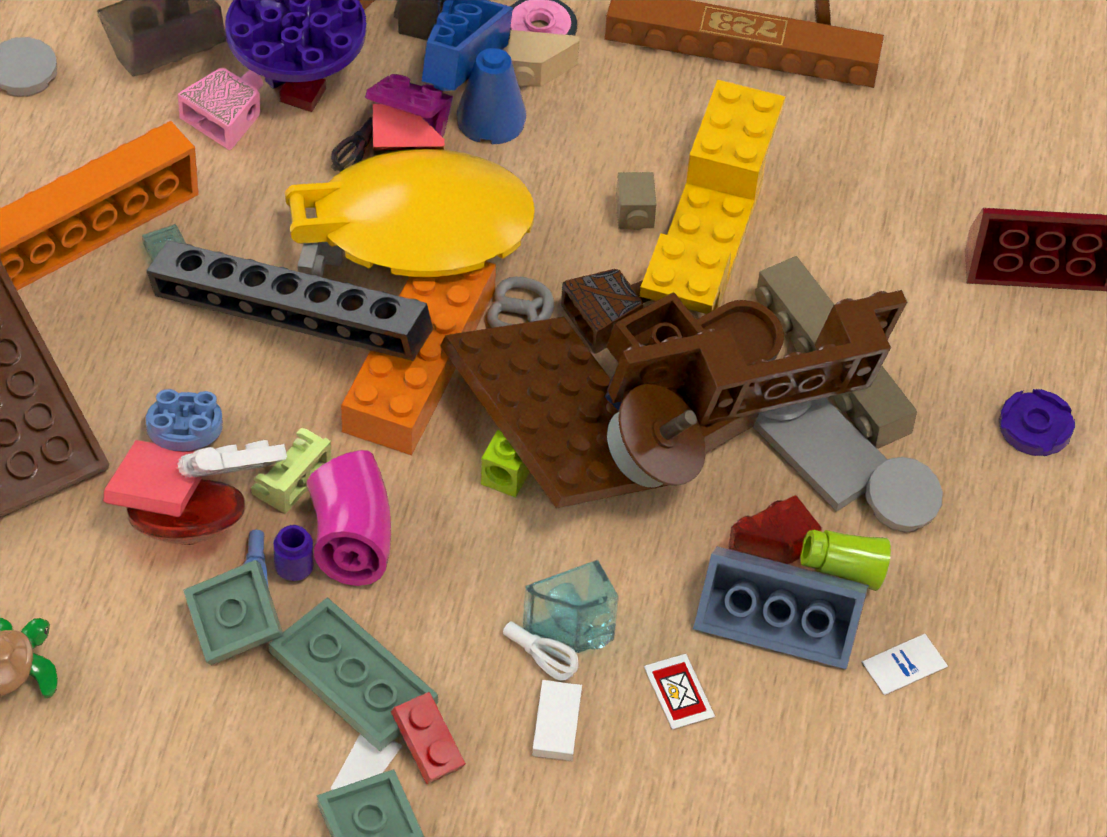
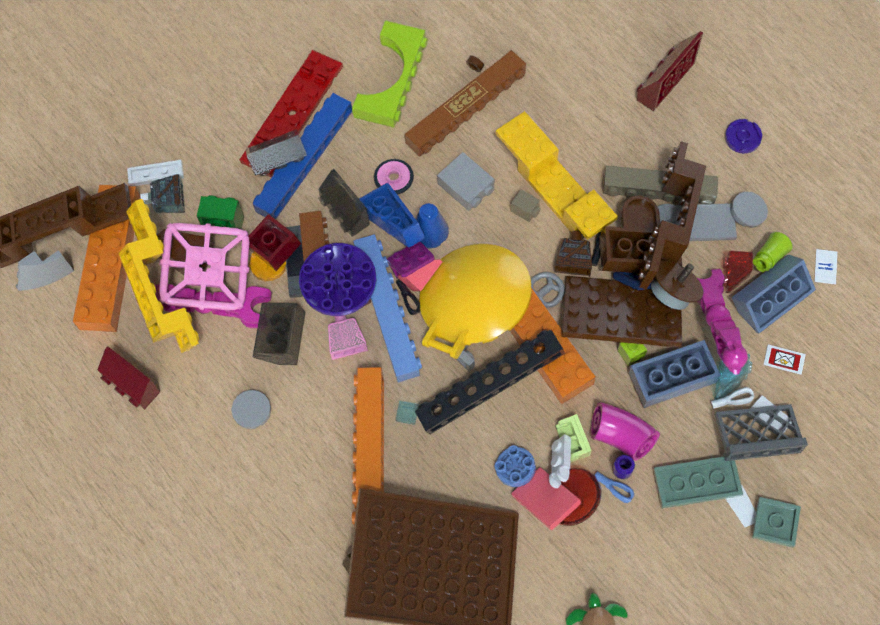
camera: 45 degrees left, 15 degrees up
(233, 612) = (639, 511): sand green plate -> none
(307, 131) = (389, 315): none -> medium blue brick
(428, 737) = (752, 473): plate -> none
(480, 721) = (760, 448): none -> dark grey fence
(505, 530) = (674, 374): none -> sand blue brick
(541, 56) = (414, 191): tan slope -> none
(609, 107) = (466, 181): none -> light grey brick
(620, 533) = (722, 326): none -> dark pink piece

